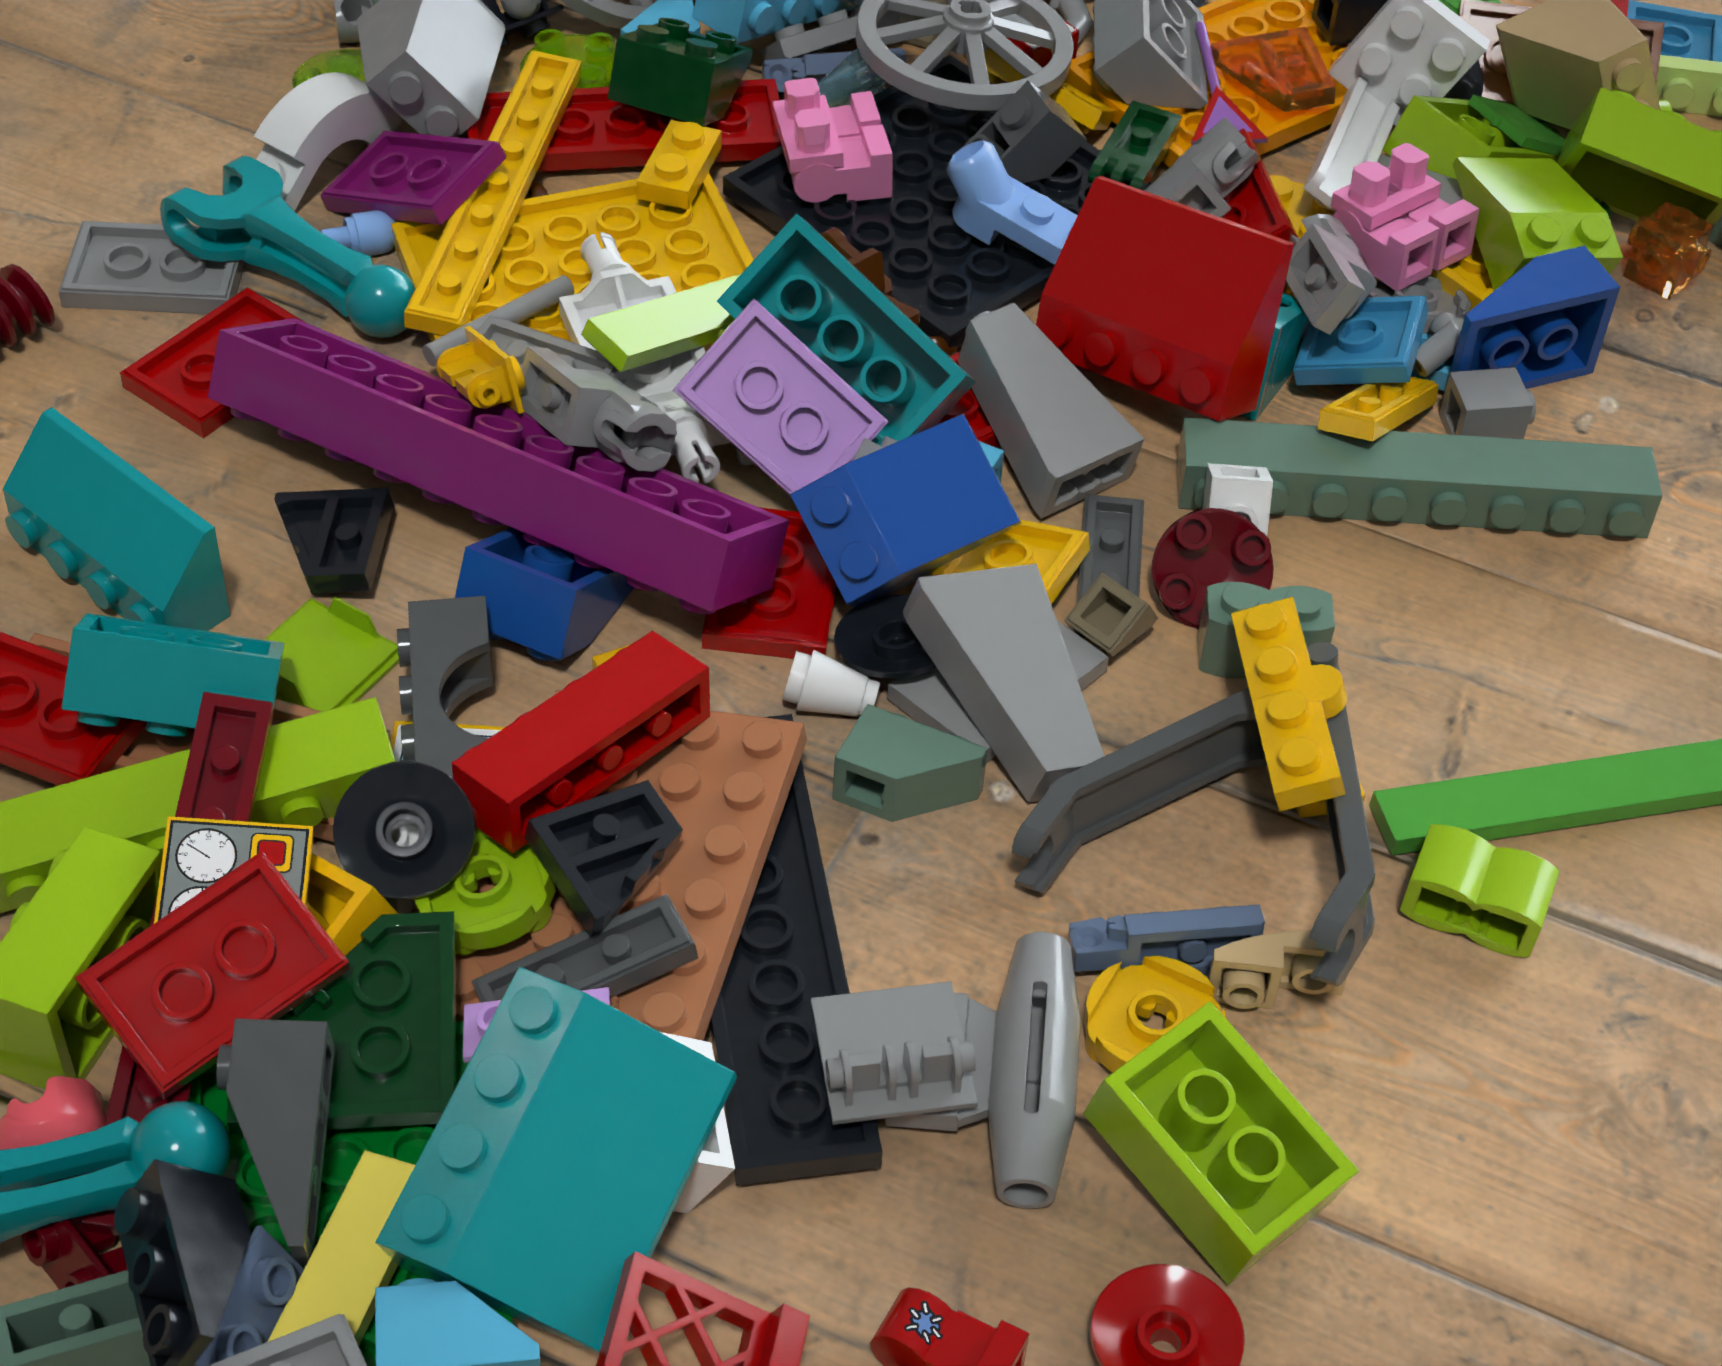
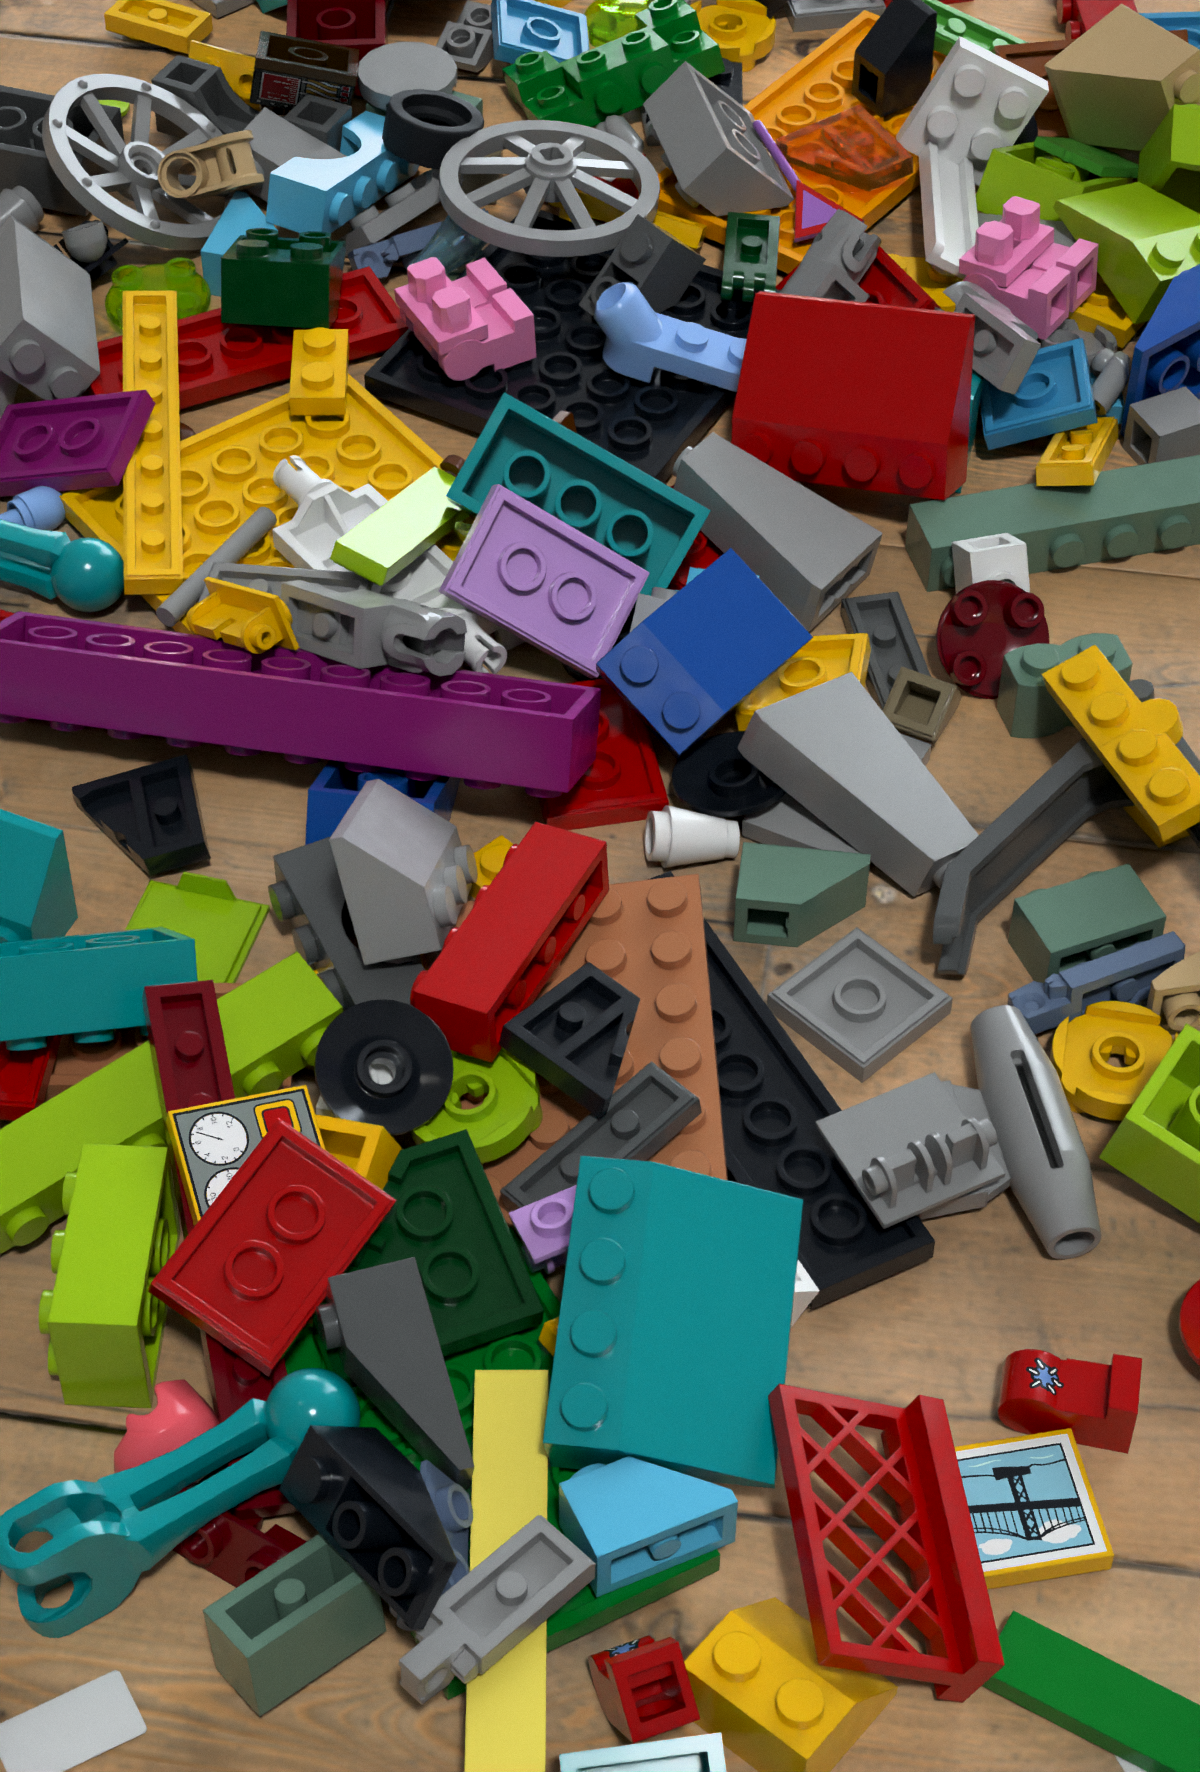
camera: 15 degrees left, 0 degrees up
(505, 643) = (400, 873): none -> light grey slope
(924, 894) = (859, 1004): none -> light grey tile
(1179, 869) = (1083, 921): none -> sand green brick

